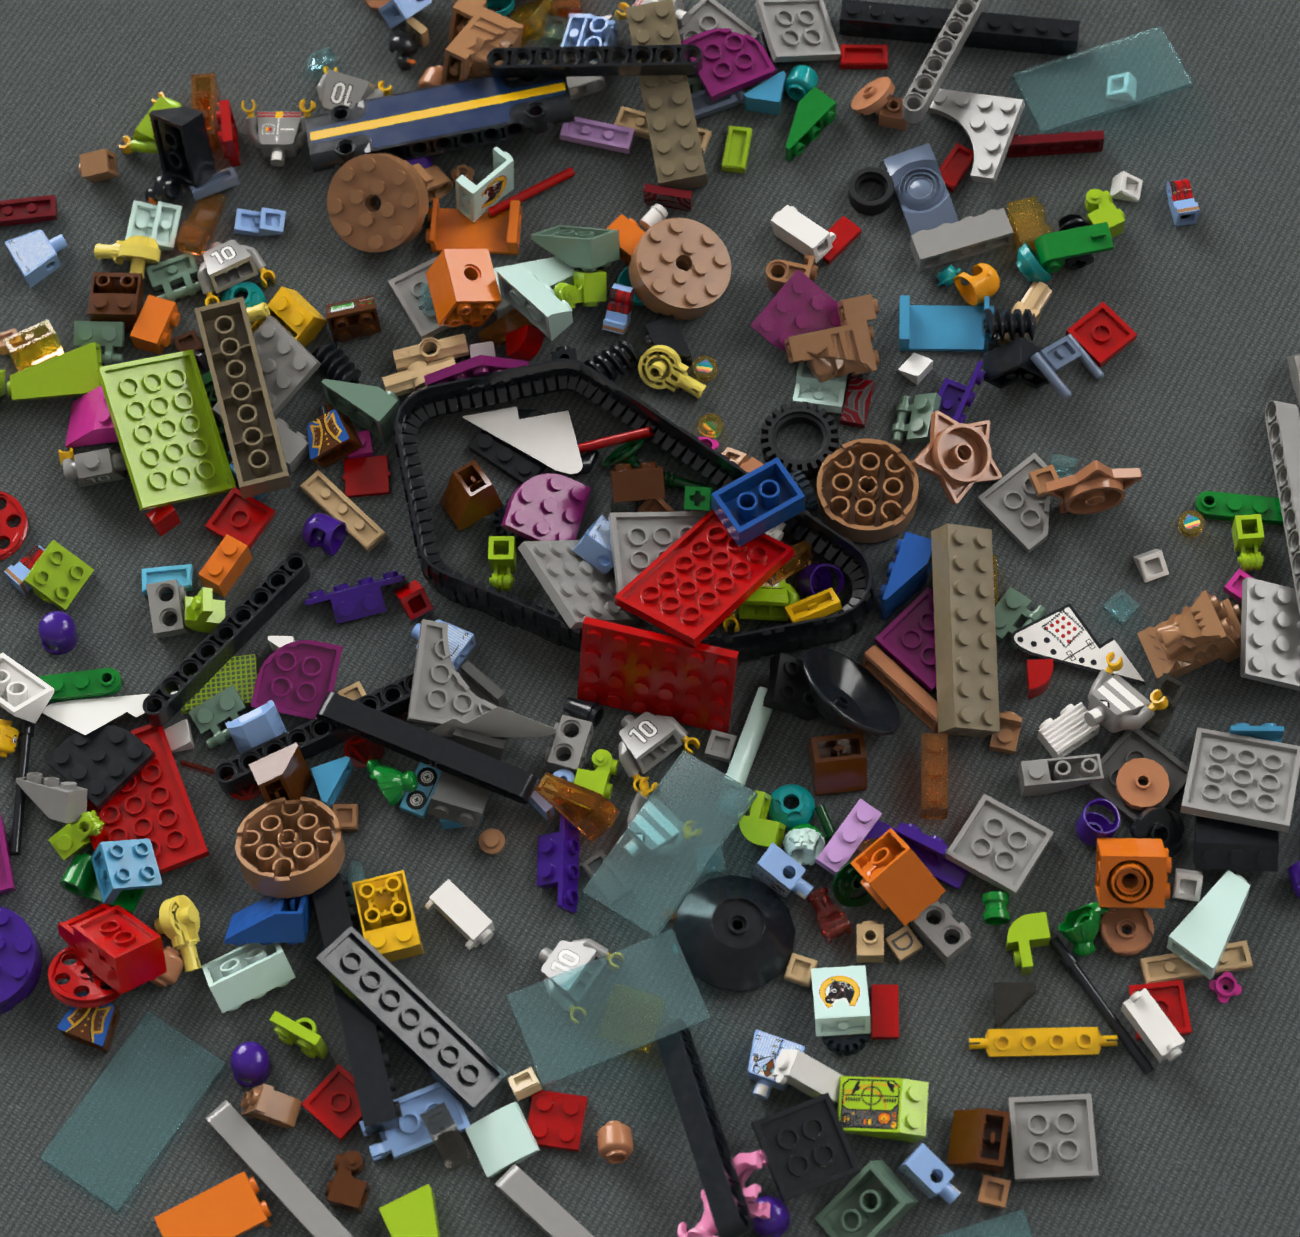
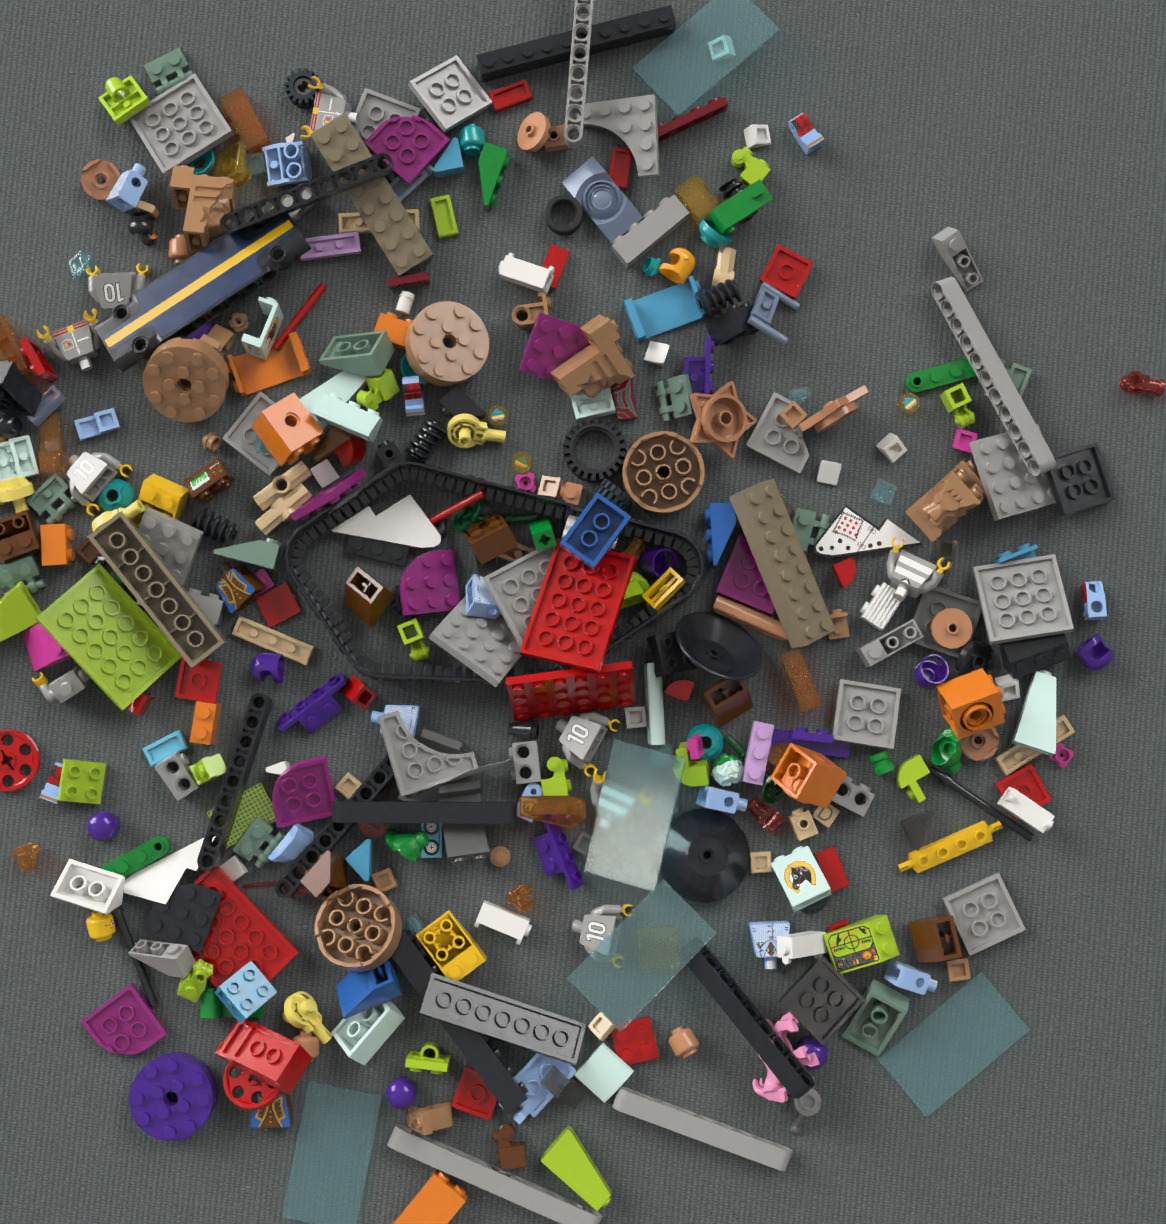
camera: 25 degrees left, 20 degrees up
(374, 282) = (211, 442): none -> medium nougat plate
(495, 897) = (521, 898): none -> clear orange piece
(776, 796) = (695, 746): none -> dark pink plate
(786, 734) = (680, 689): none -> red brick
(1064, 563) = (828, 472): none -> white slope

